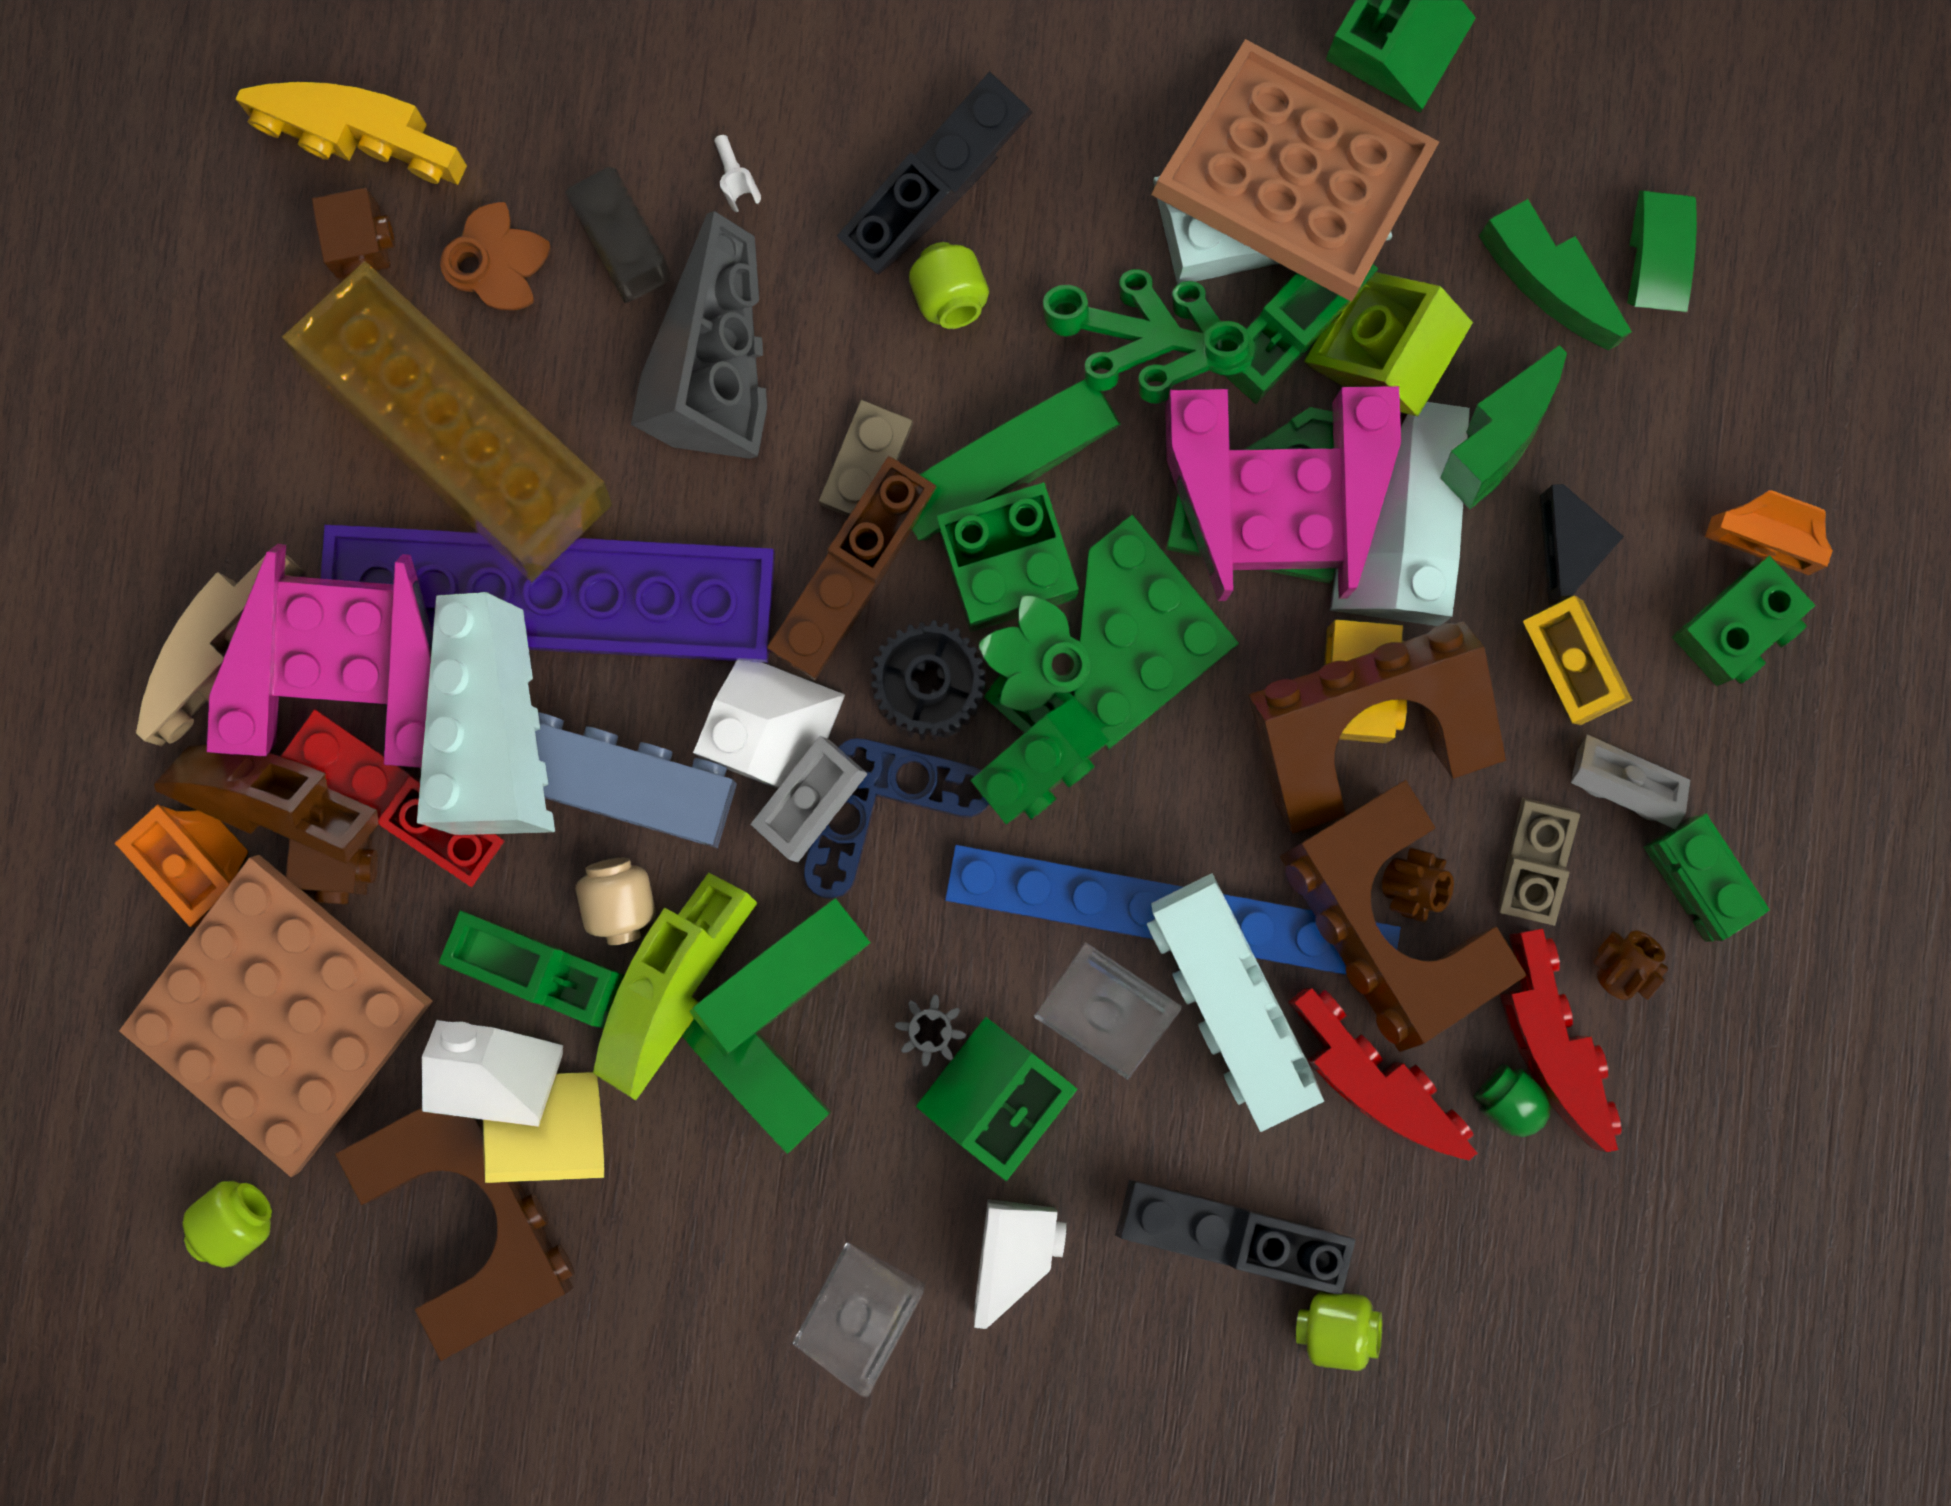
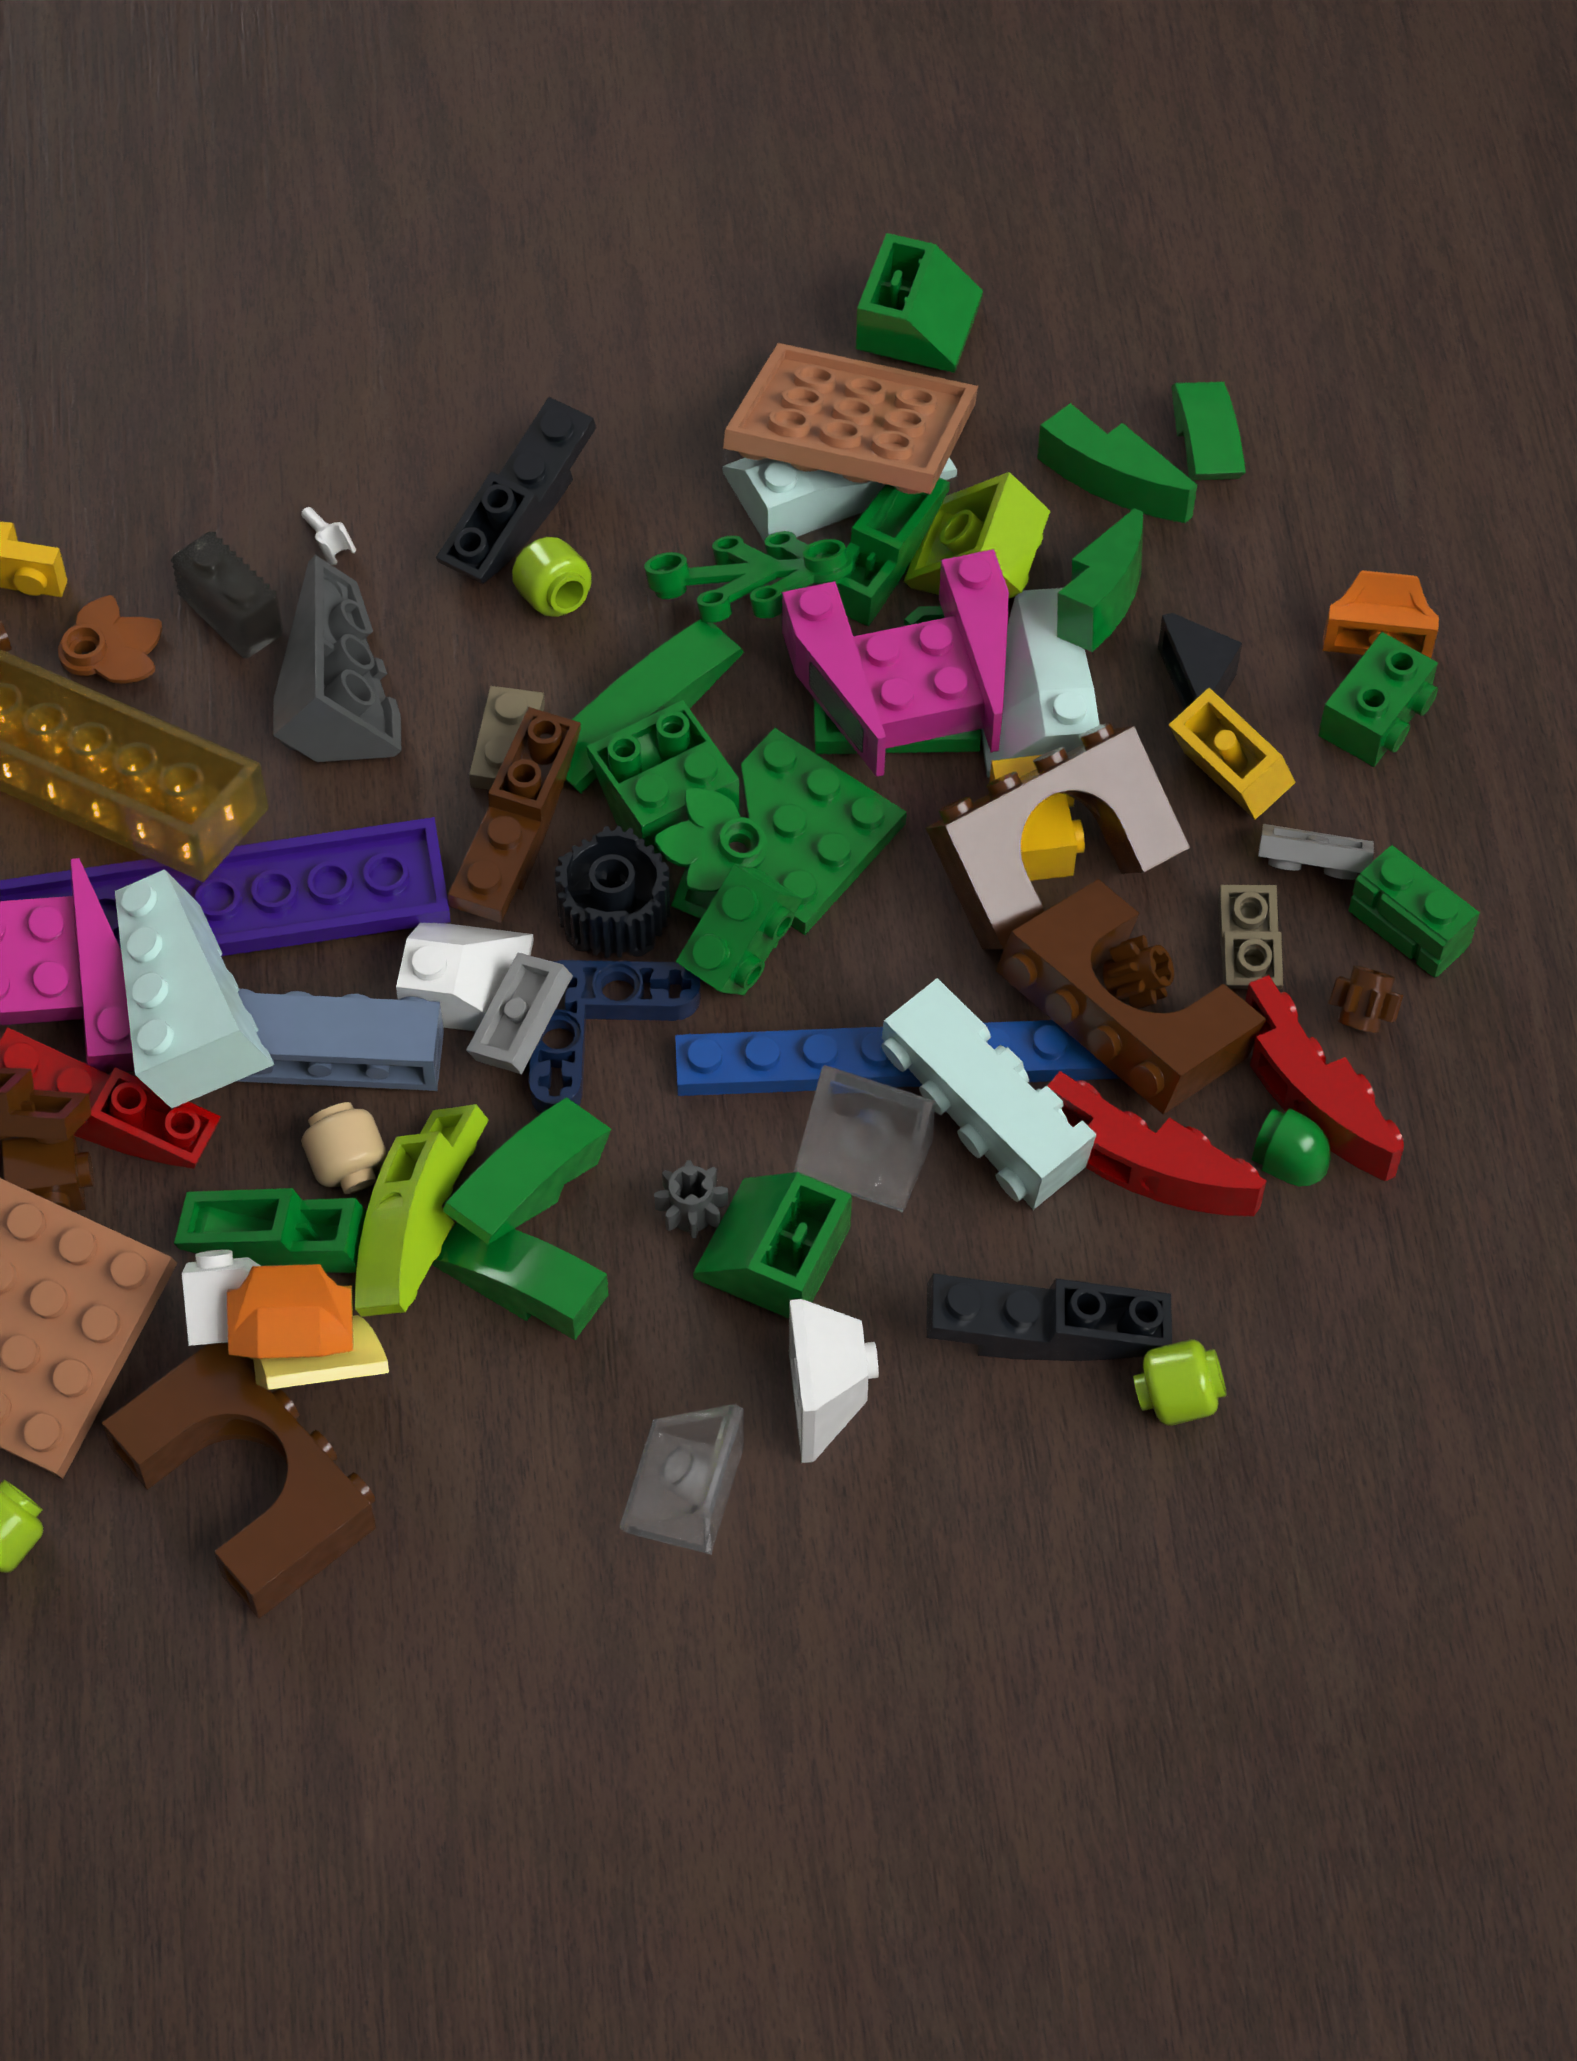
camera: 10 degrees left, 25 degrees down
(516, 1123) = (289, 1314): none -> orange slope

